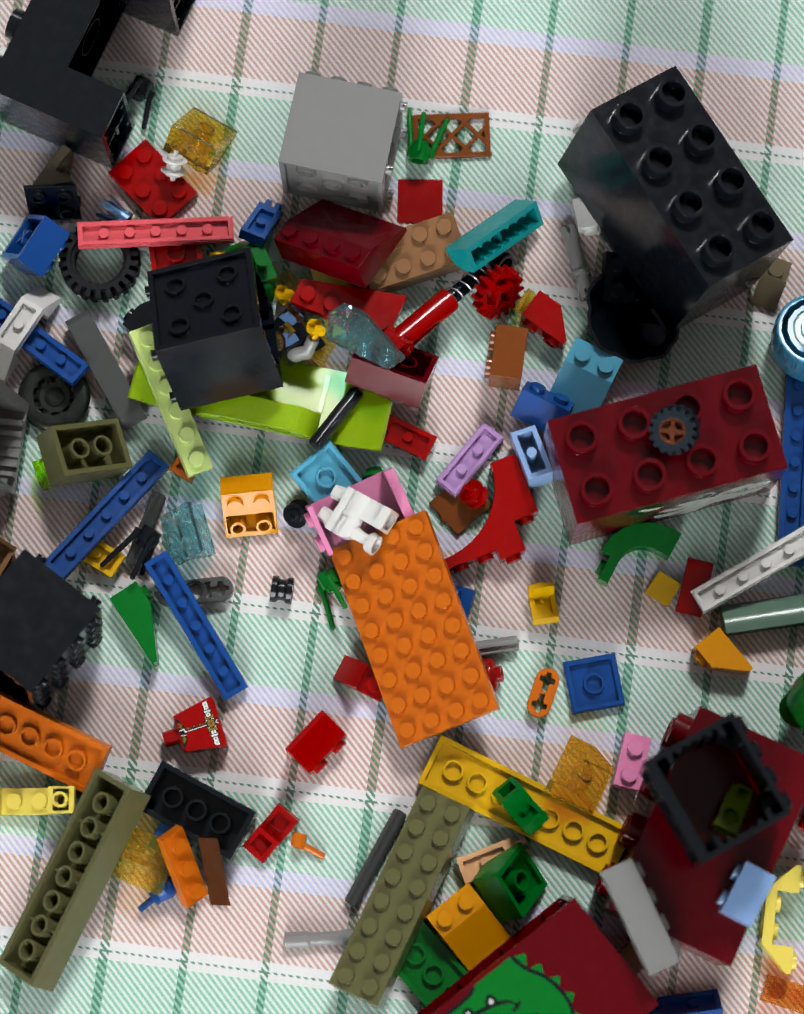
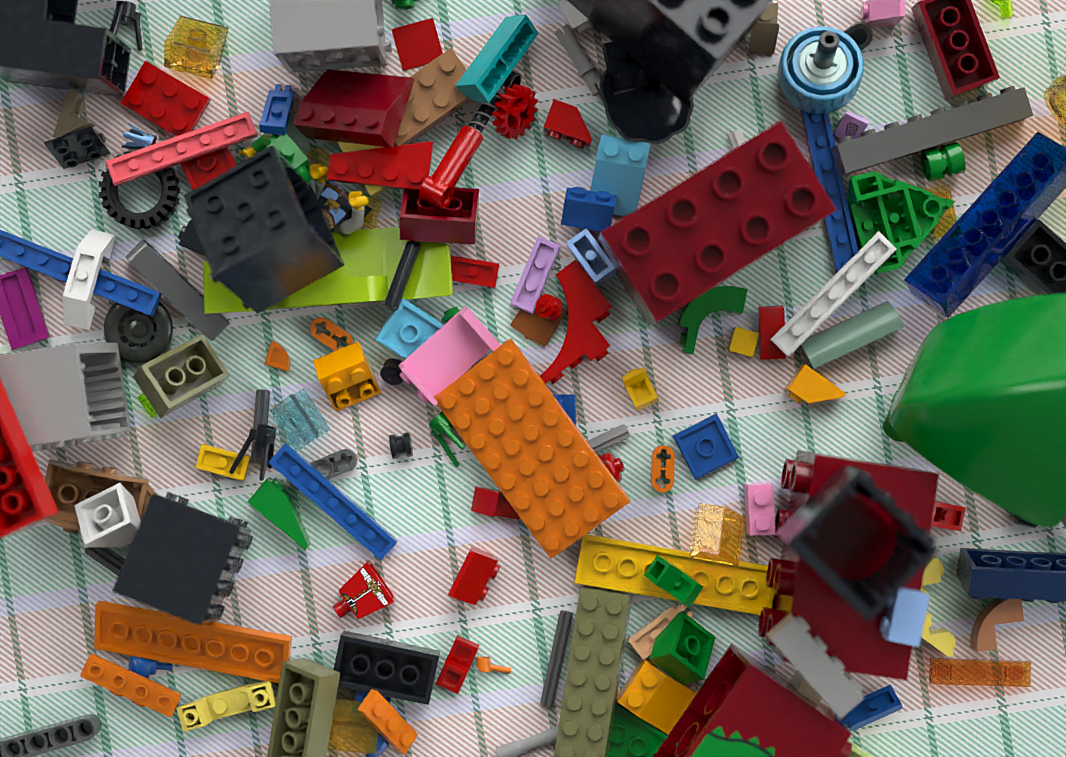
camera: 20 degrees left, 10 degrees up
(36, 245) = (74, 194): blue brick -> none
(106, 515) = (220, 426): blue plate -> none
(174, 165) = (179, 79): white wheel -> none
(178, 422) = (262, 324): yellowish green plate -> none
(214, 871) = (417, 716): reddish brown sticker -> none
(250, 455) = (332, 327): none -> orange beam
(351, 513) = (443, 360): white hips -> none
(360, 334) = (403, 195): clear light blue slope -> none
(508, 351) = (542, 169): dark orange brick -> none
(524, 301) = (543, 112): clear yellow tile -> none
(666, 433) = (723, 218): black wheel -> none
(732, 810) = (871, 542): leg -> none

